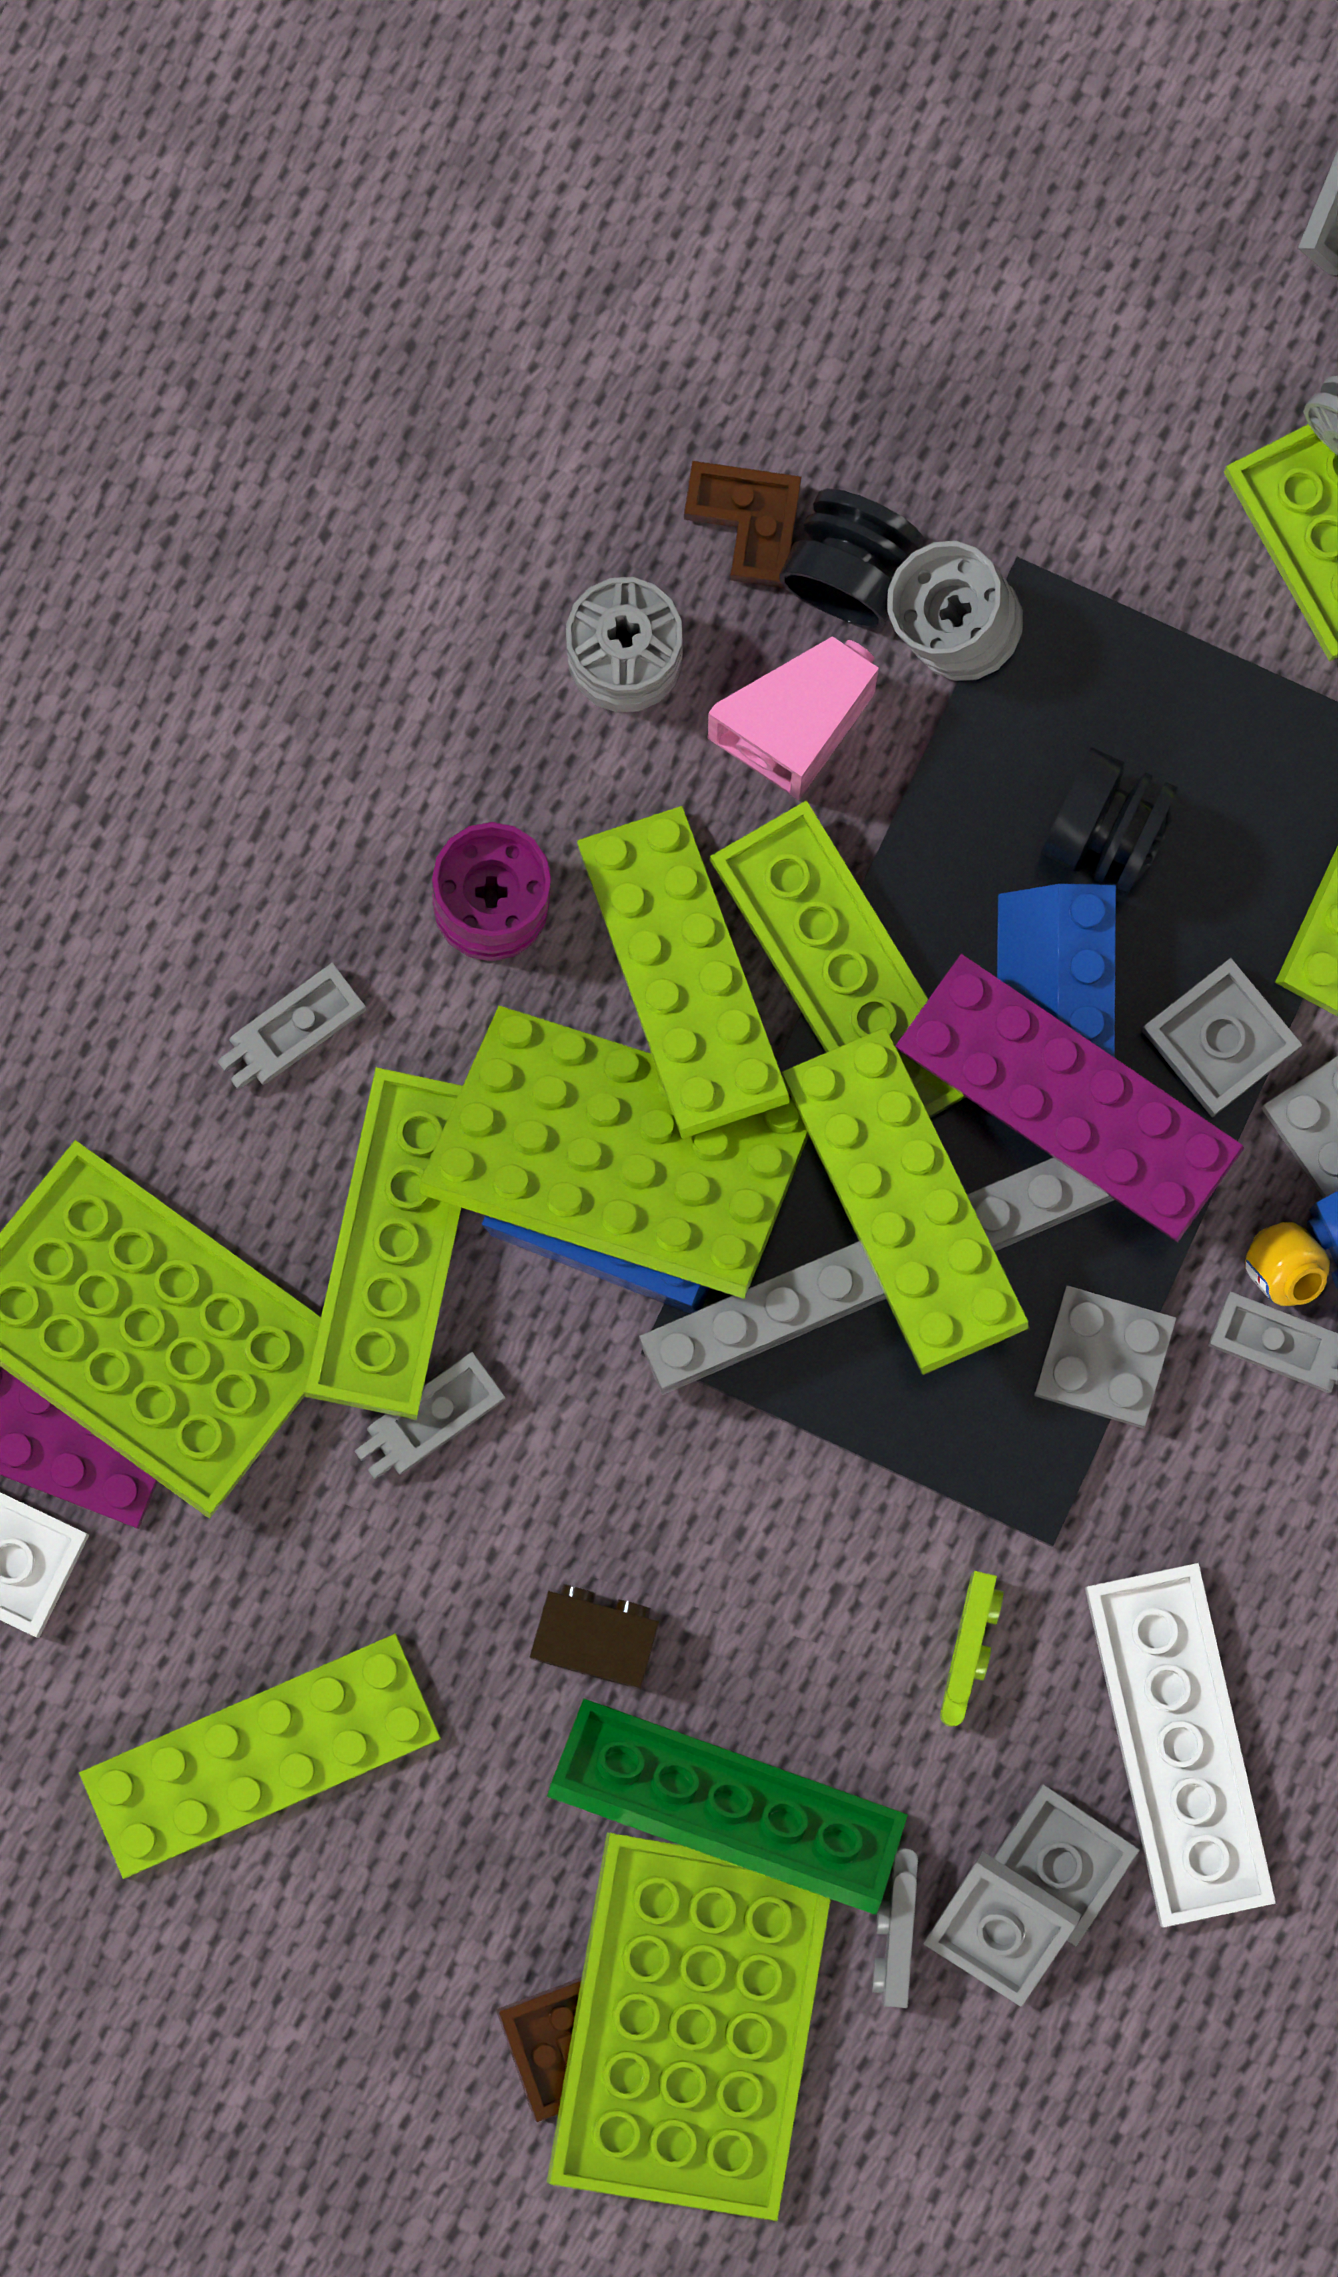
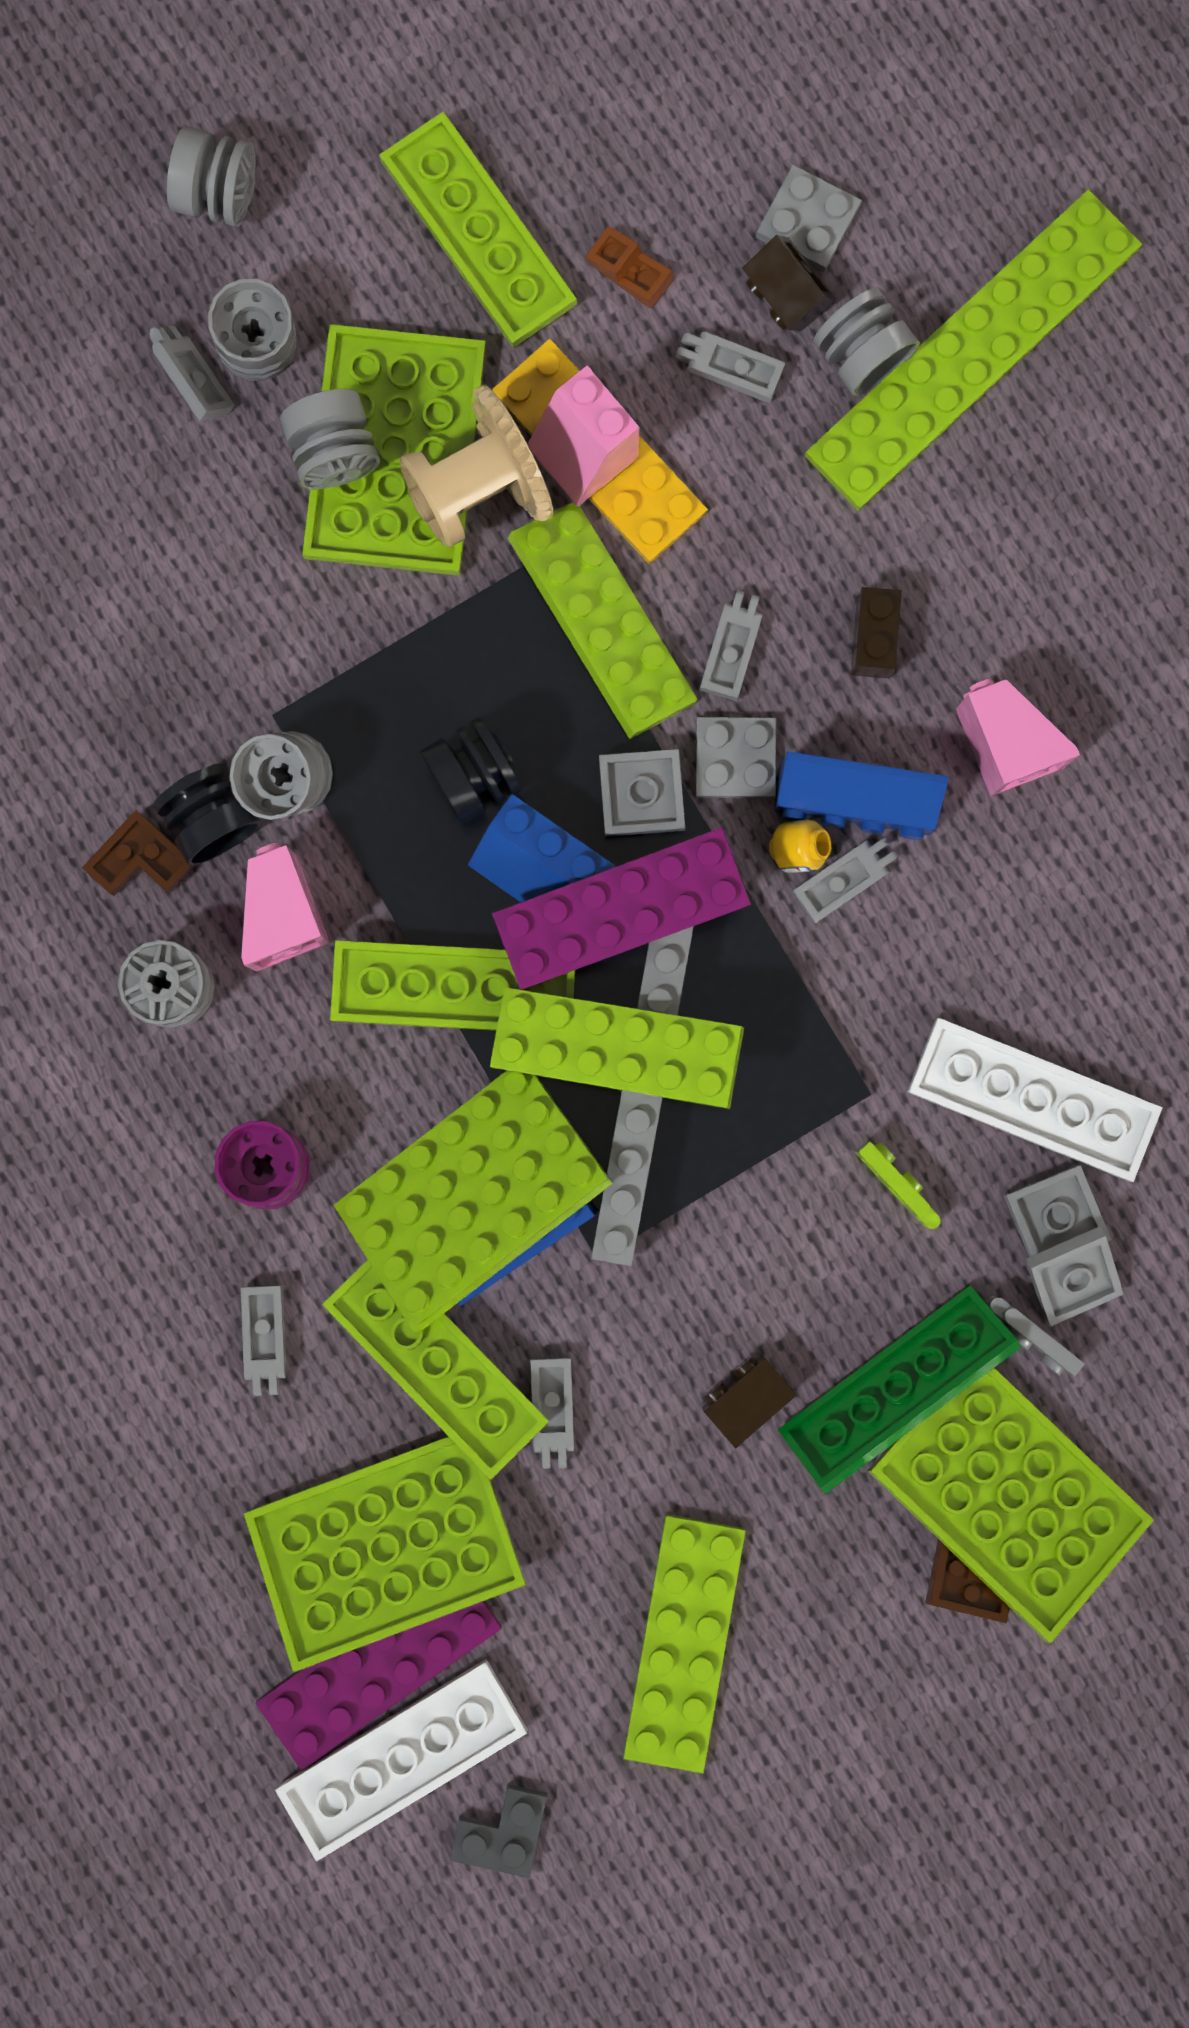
camera: 55 degrees left, 5 degrees up
(682, 972) = (389, 1084): lime plate -> none
(1105, 1356) = (782, 989): light grey plate -> none

